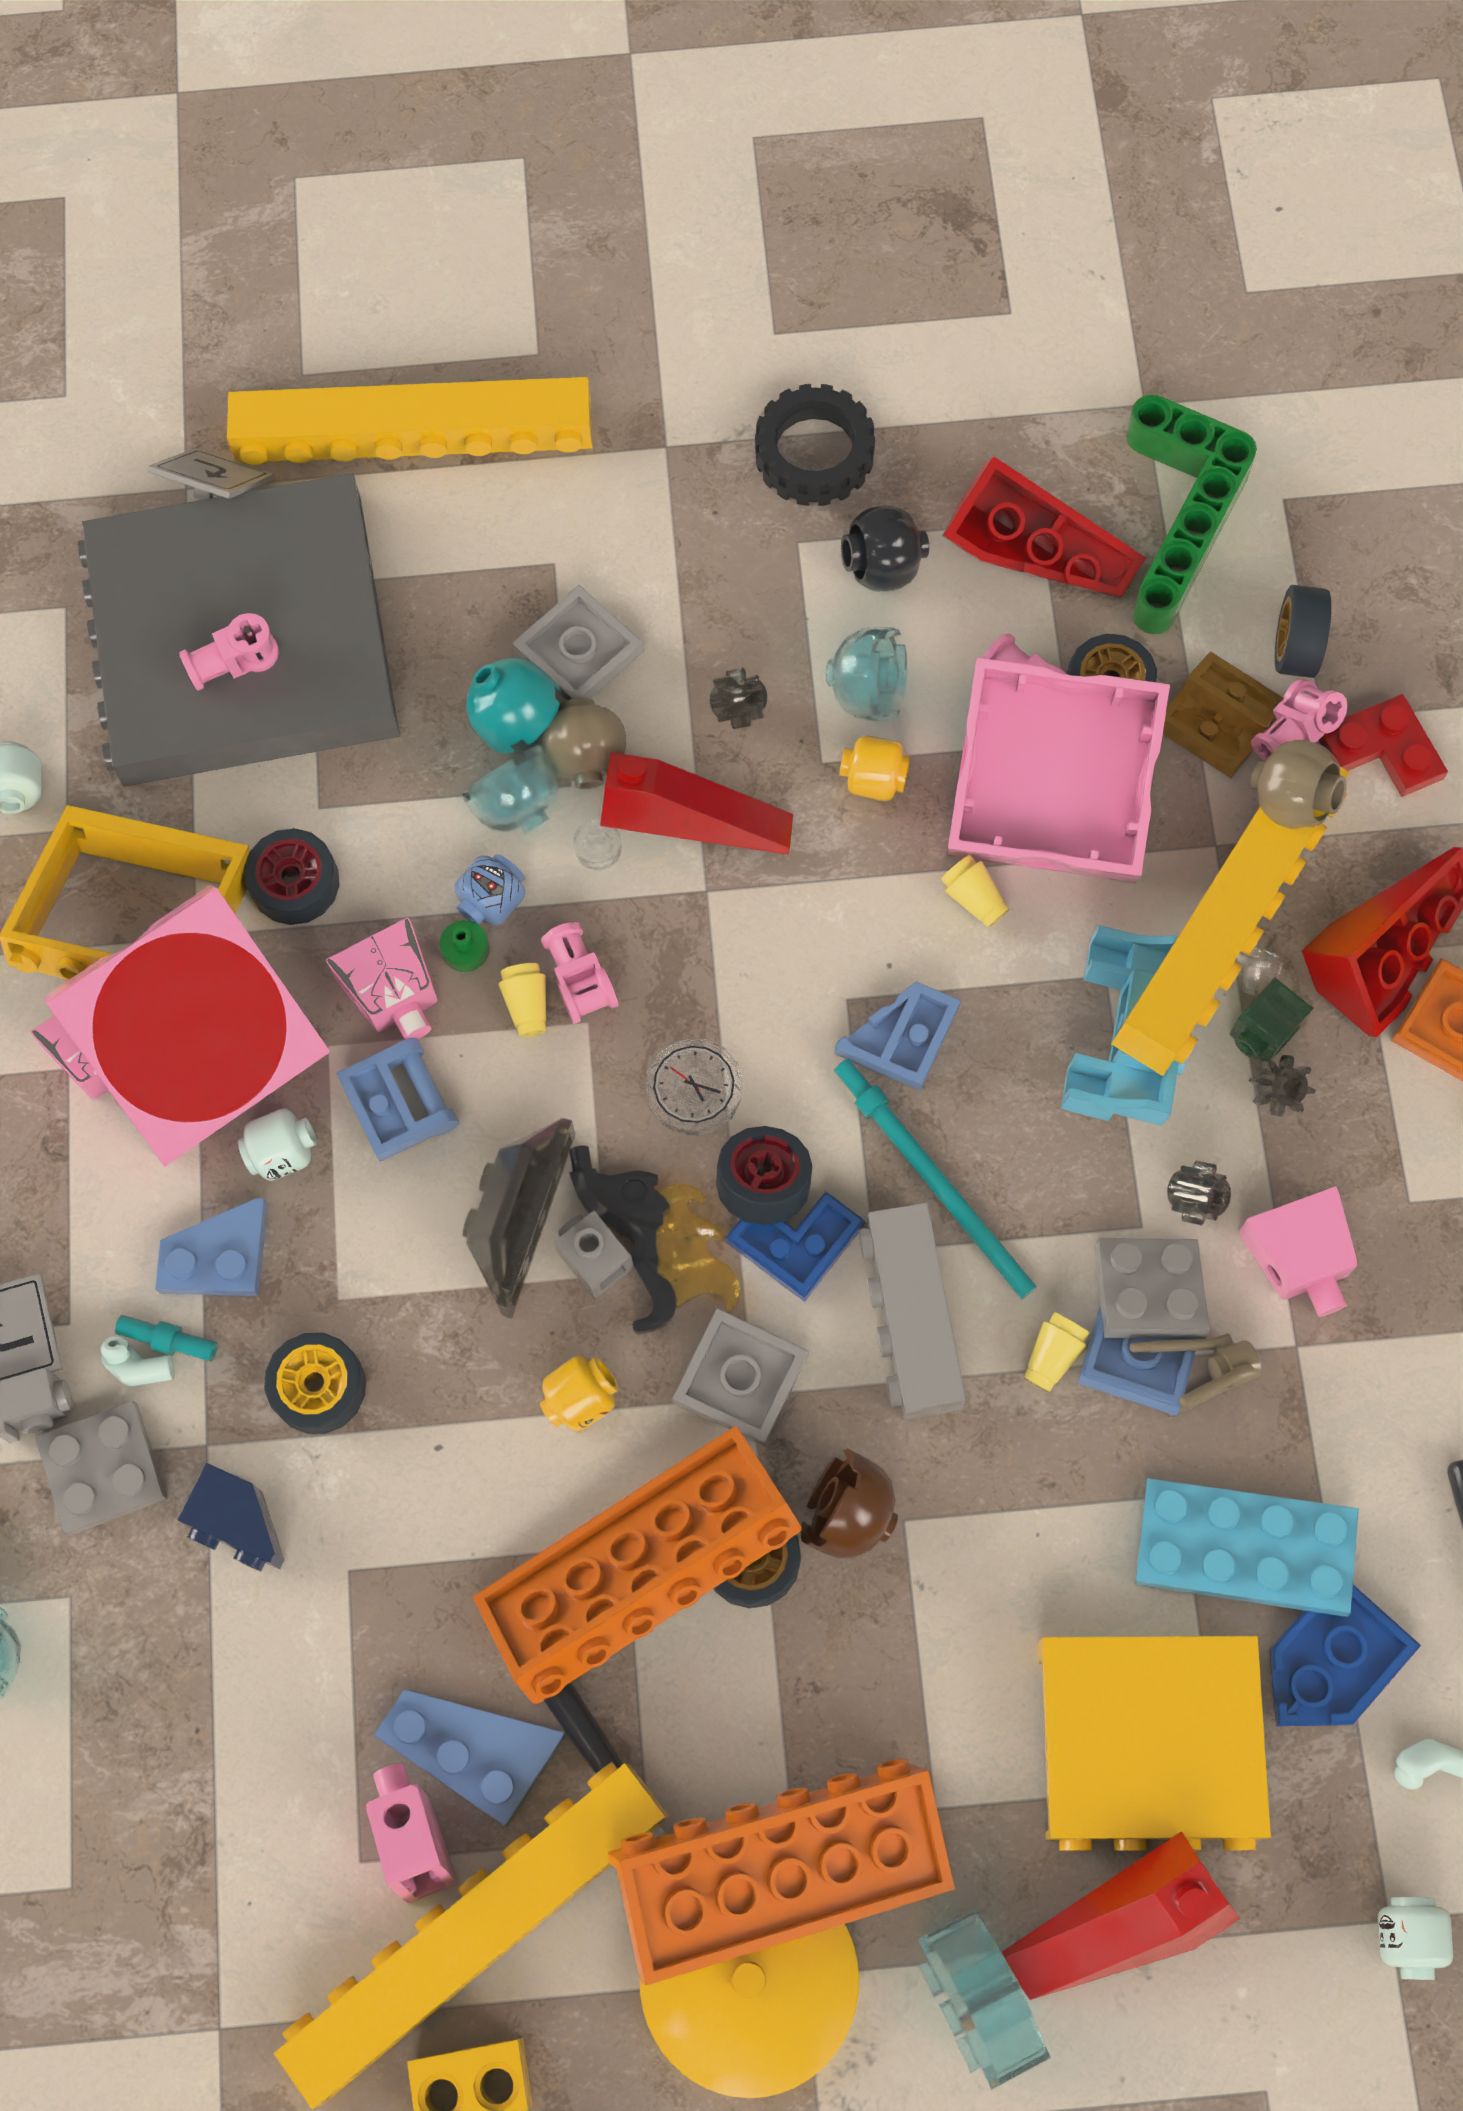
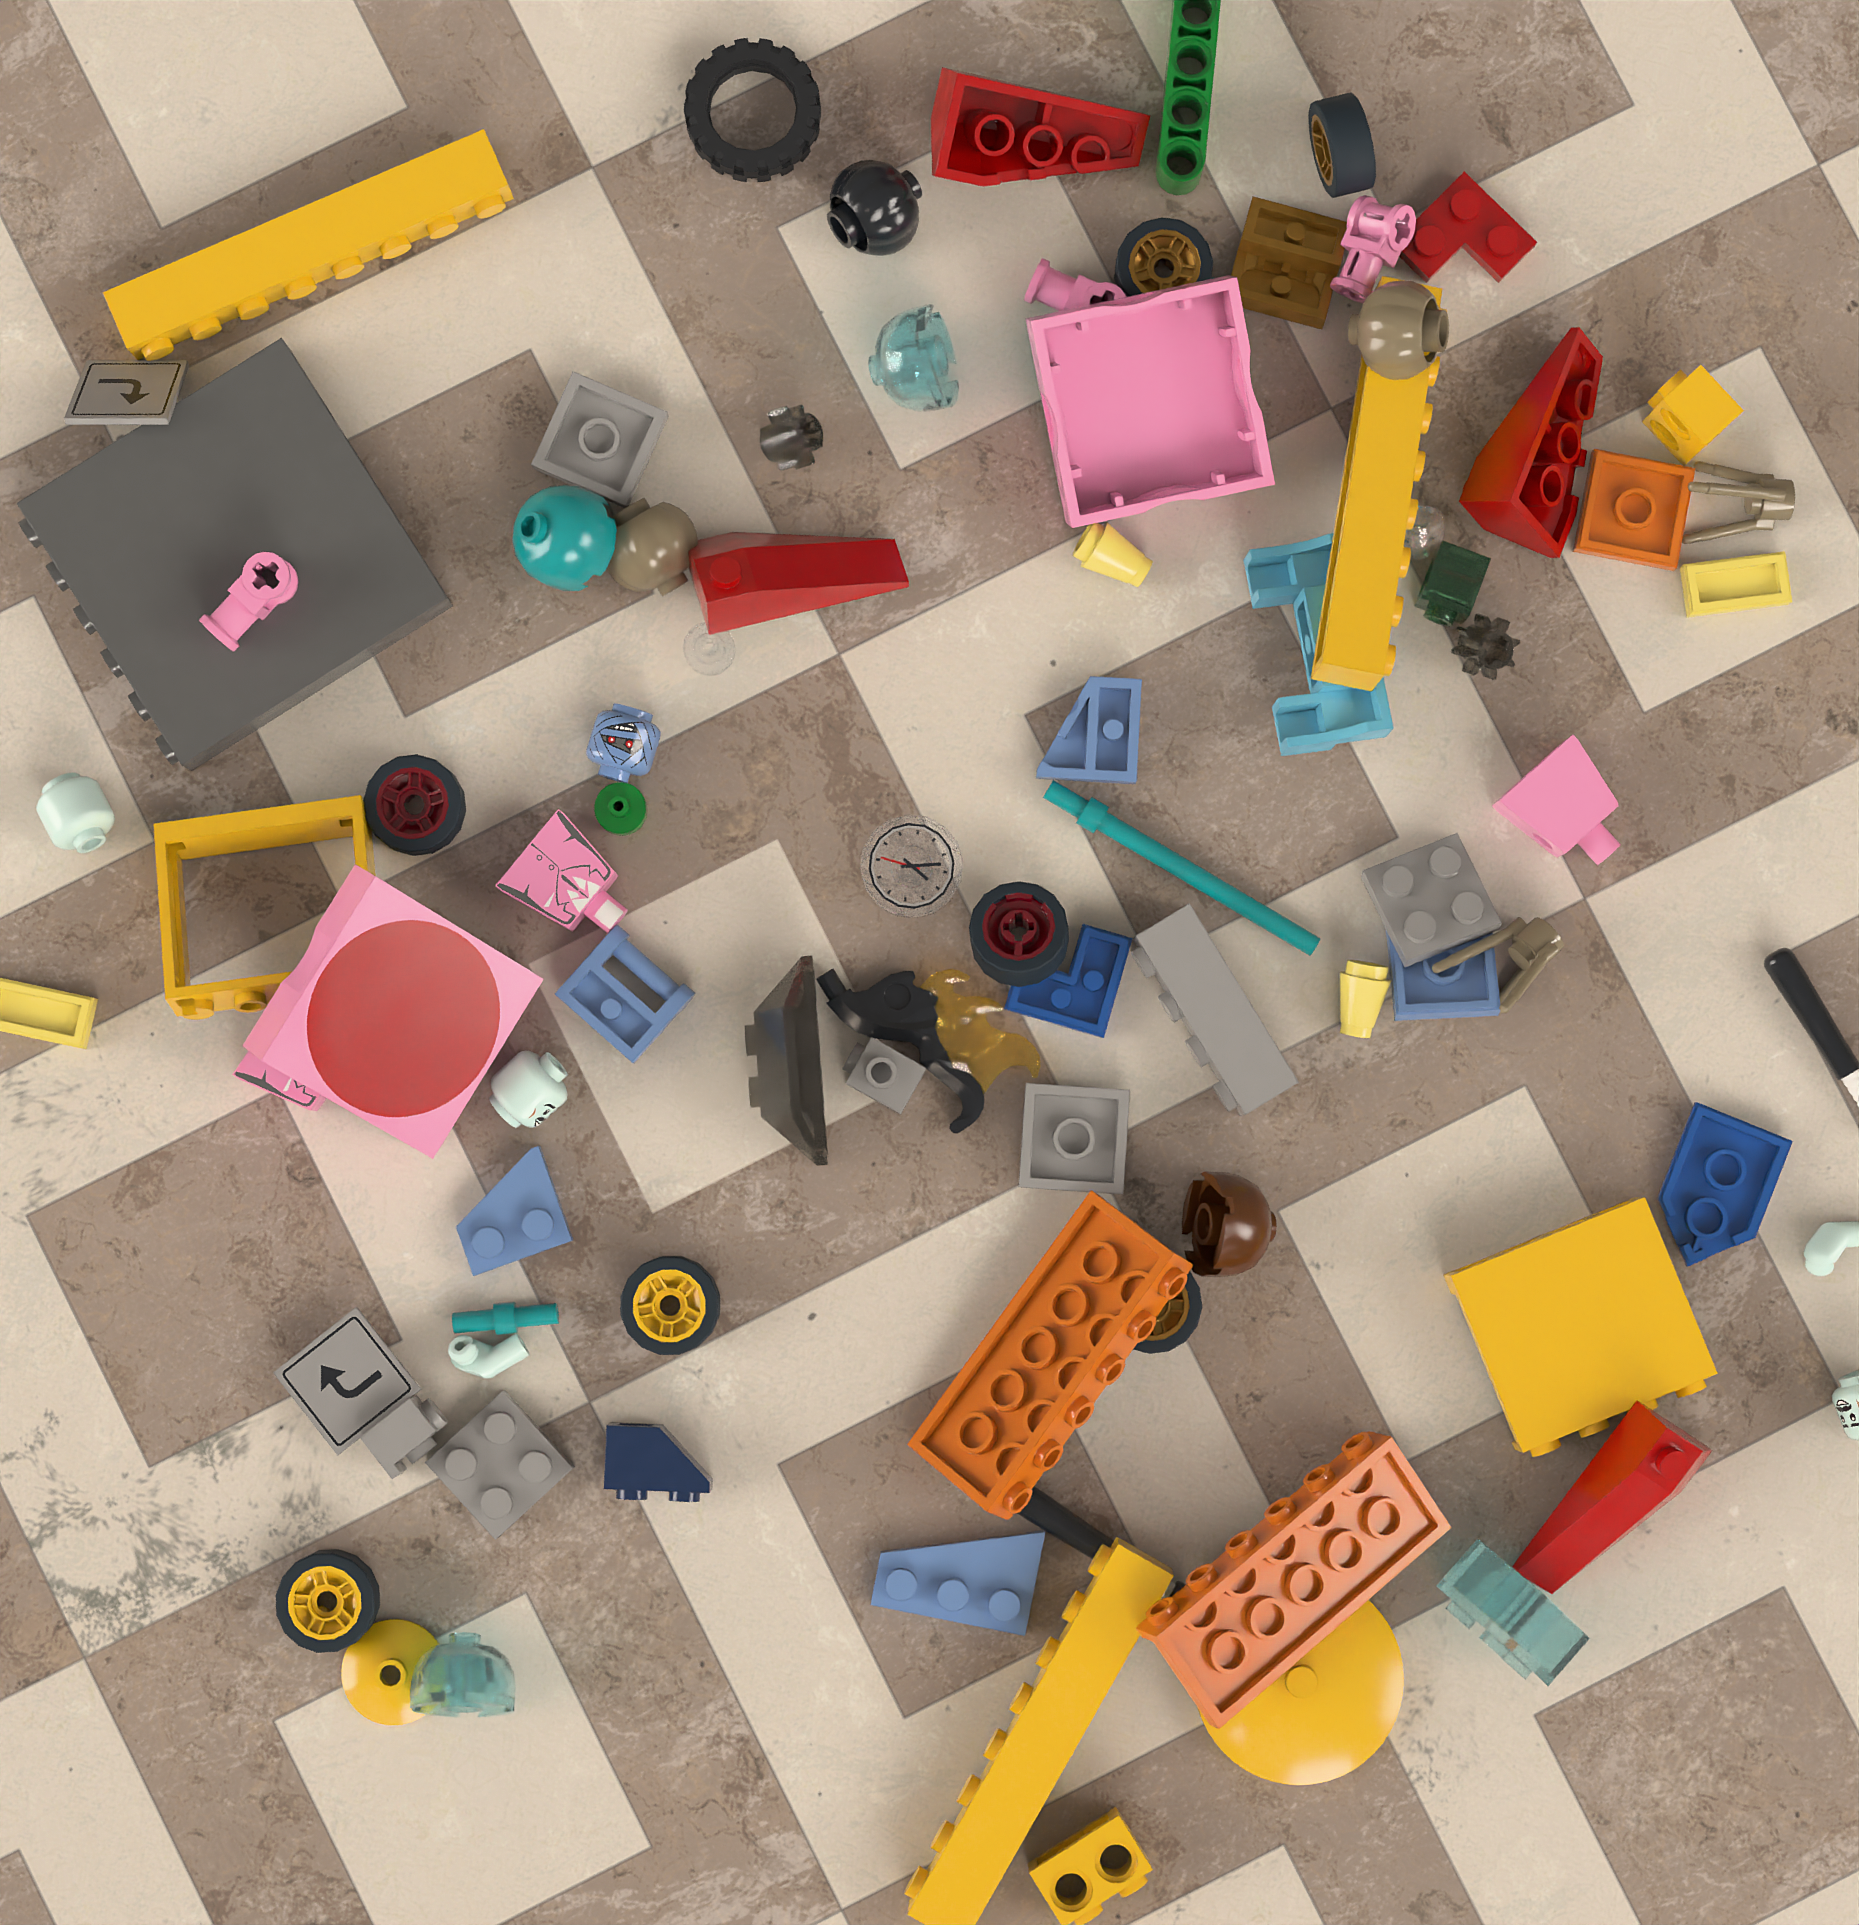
camera: 30 degrees left, 15 degrees up
(410, 1855) = (960, 1697): bright pink torso -> none
(515, 793) = (607, 630): clear light blue cylinder -> none
(525, 998) = (708, 842): light yellow cone -> none
(579, 1393) = (928, 1216): yellow head -> none
(580, 979) = (752, 799): bright pink connector -> none
(875, 768) = (960, 459): yellow head -> none
(1199, 1193) = (1443, 787): clear smoke gear -> none
(1247, 1547) = (1605, 1113): medium azure plate -> none

